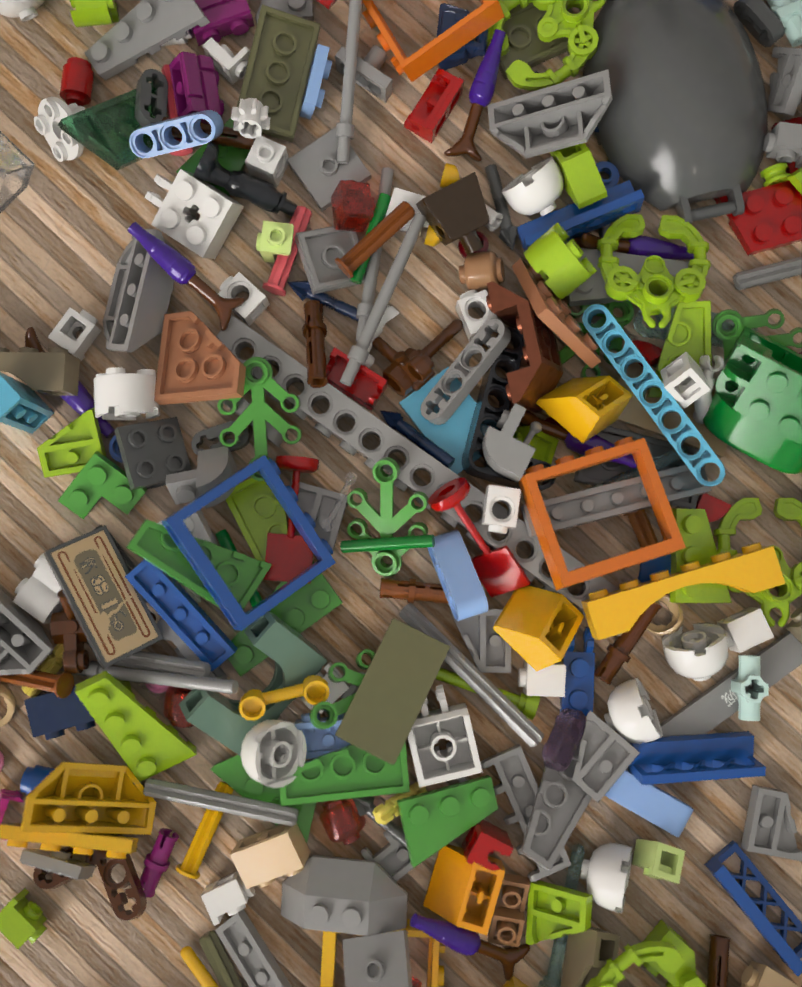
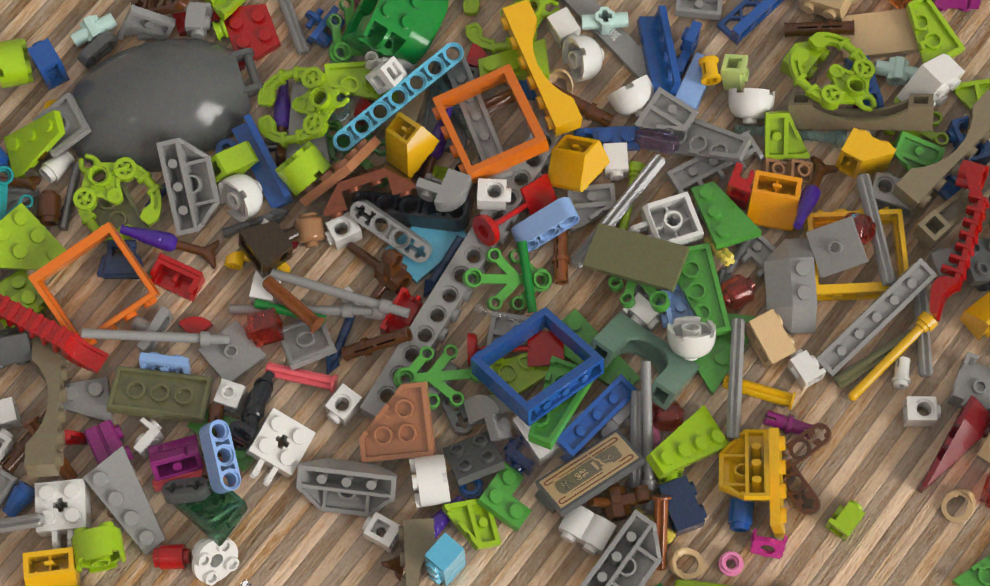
camera: 90 degrees left, 15 degrees down
(57, 862) = (796, 489): light grey plate -> none
(149, 507) = (517, 460): none -> clear blue bracket
(184, 272) = (331, 439): dark purple piece -> none
(250, 118) = (204, 401): white gear -> none
(253, 702) = (640, 314): yellow bar -> none
(275, 240) = (296, 383): yellowish green bracket -> none
(368, 125) = (195, 324): none -> red tile
(660, 826) = (709, 70): none -> yellow bush
(704, 800) = (688, 46): none -> blue plate
(759, 301) = (320, 36): none -> blue hips

